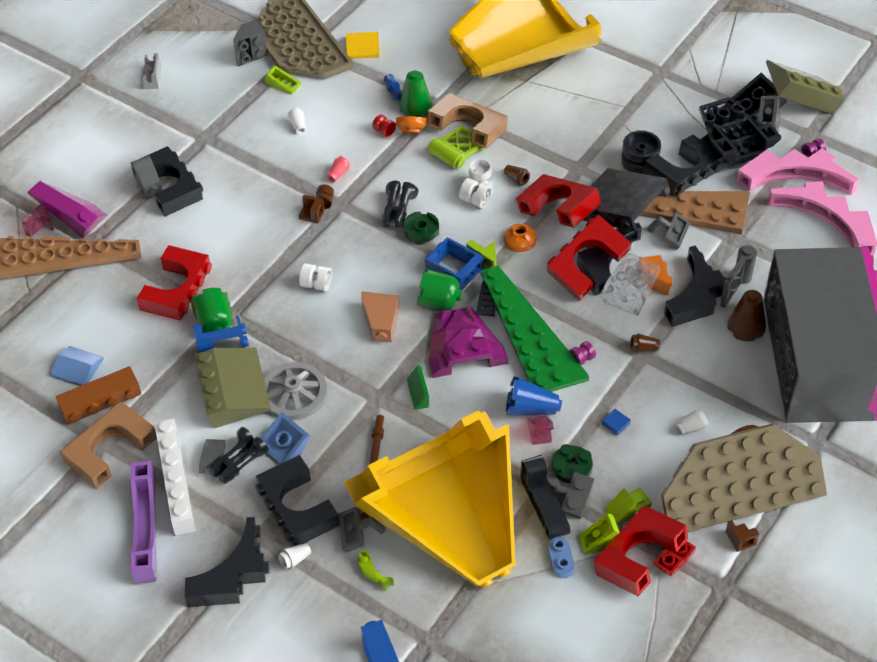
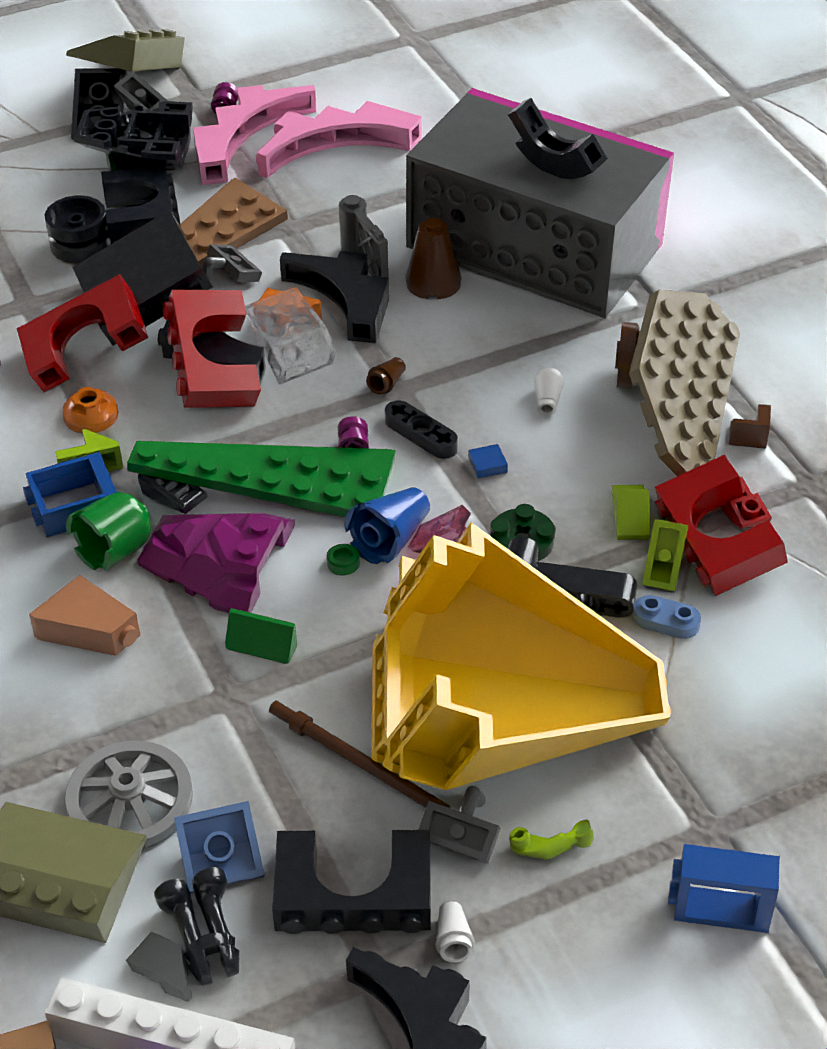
camera: 60 degrees left, 5 degrees down
(496, 395) = (343, 559): none -> green tile
(576, 494) = (579, 546): dark grey plate -> none
(622, 374) = (437, 440): none -> black beam
(832, 317) = (551, 152): none -> black arch

